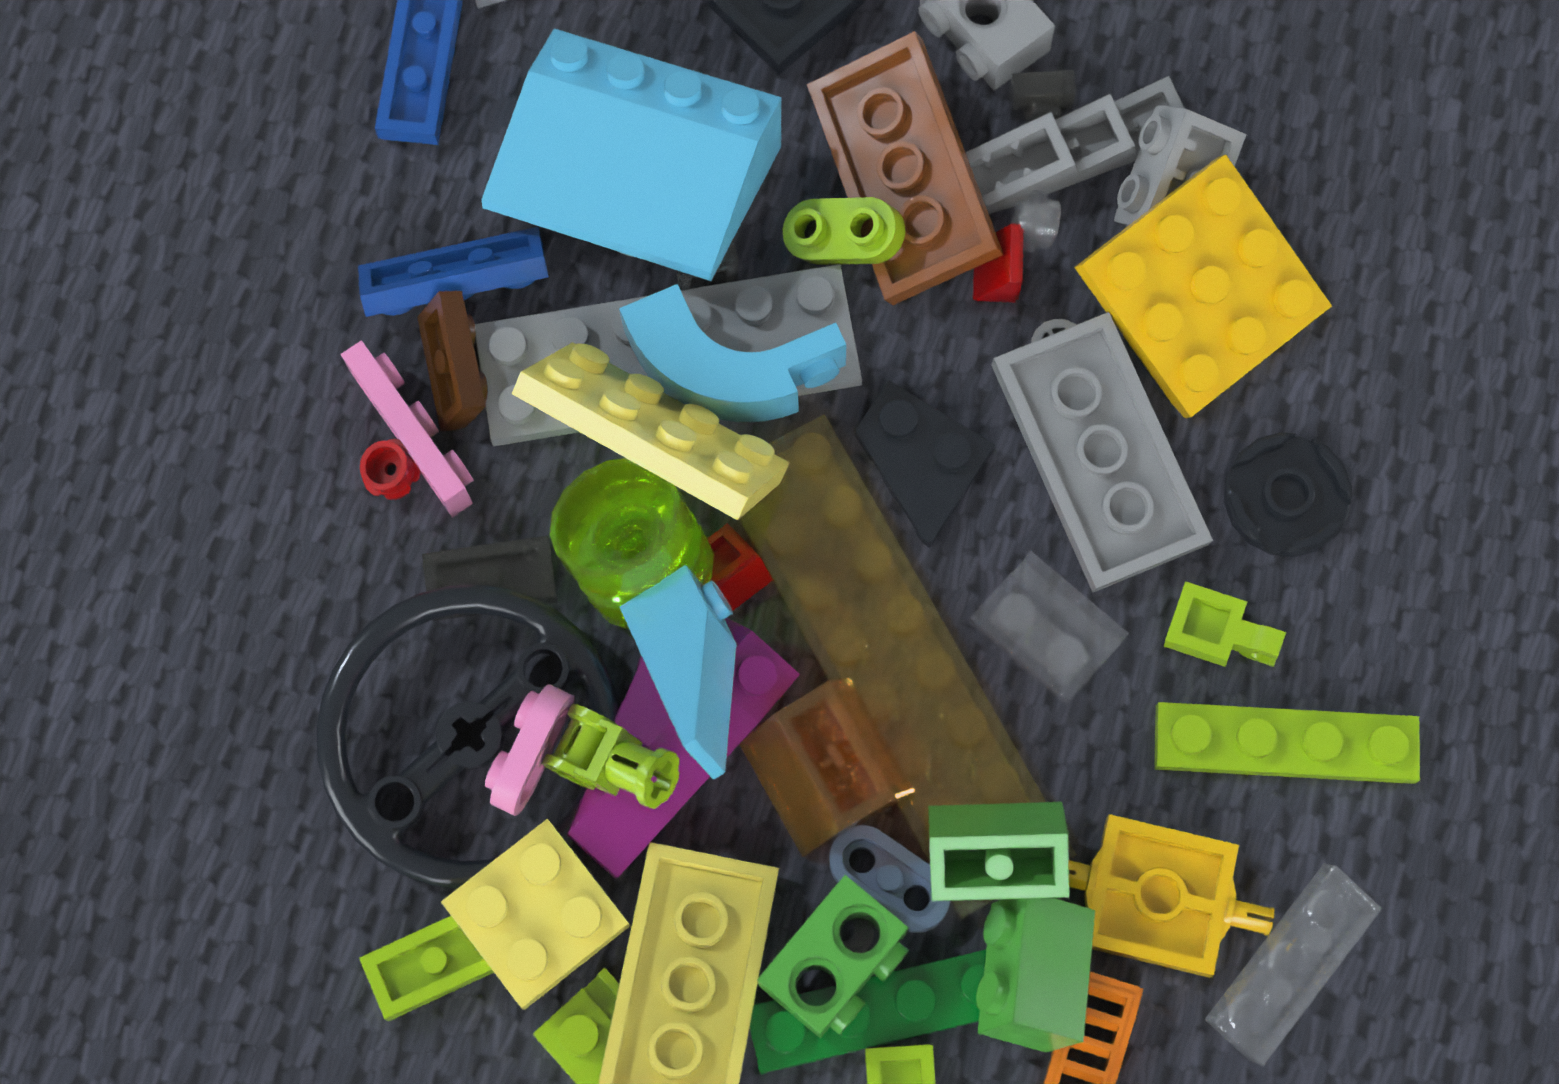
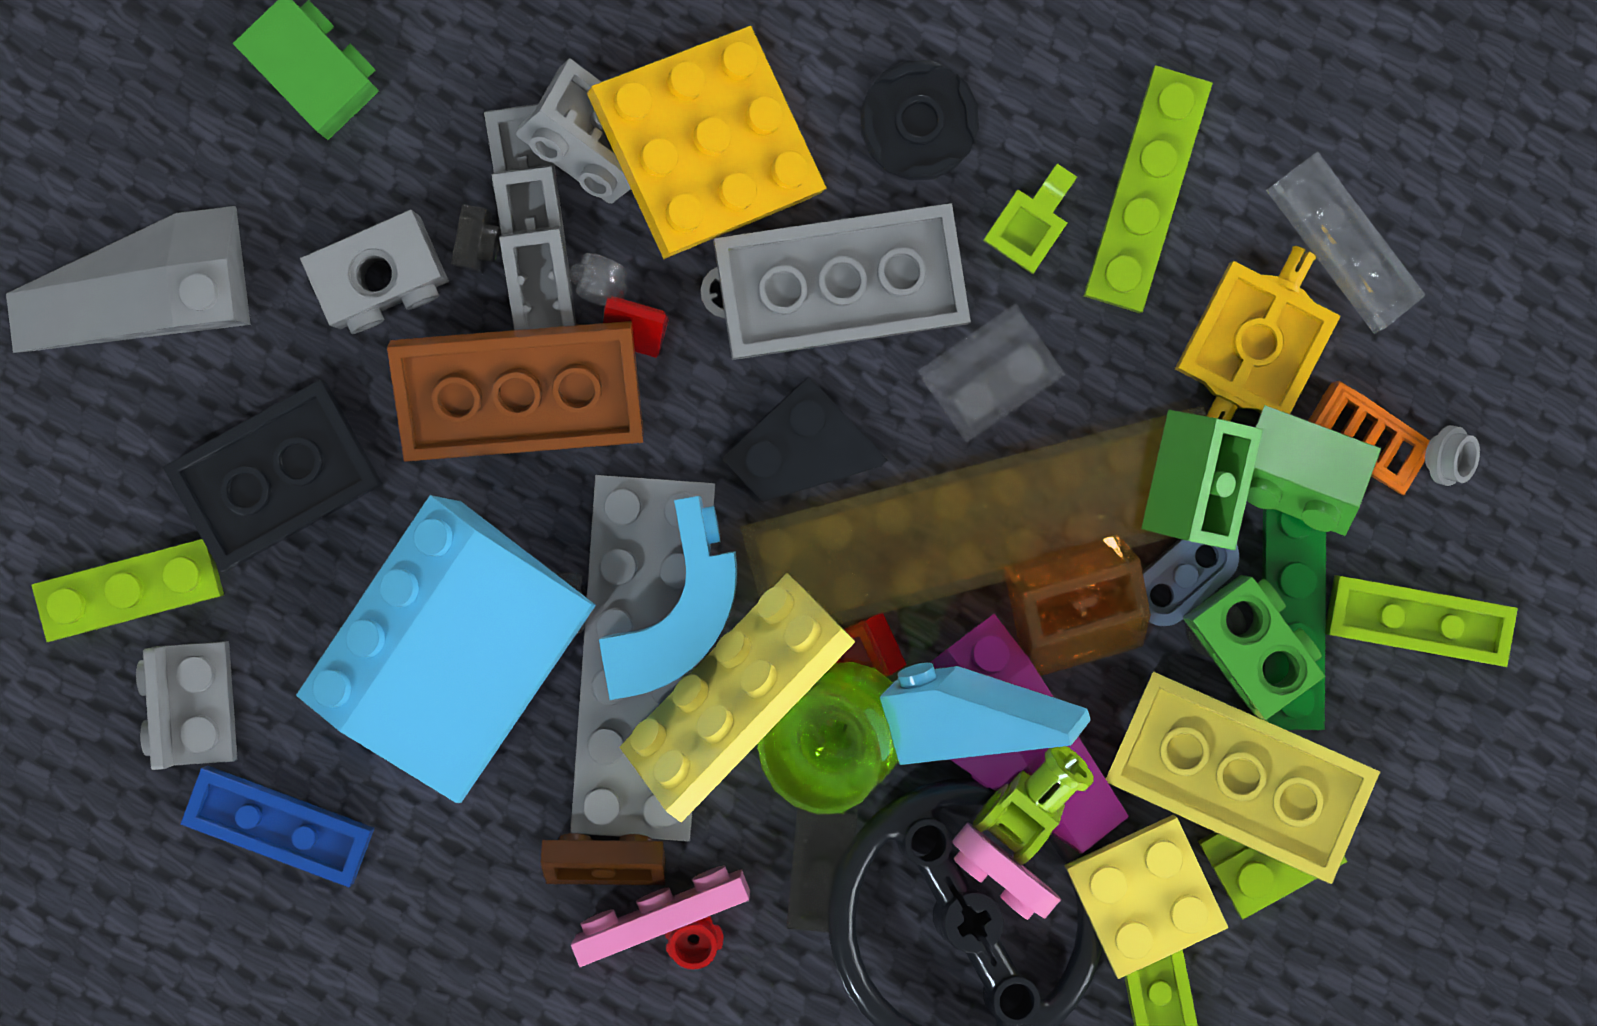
camera: 80 degrees left, 15 degrees up
(470, 267) = (513, 843): blue plate -> none
(839, 228) = (564, 468): lime plate -> none

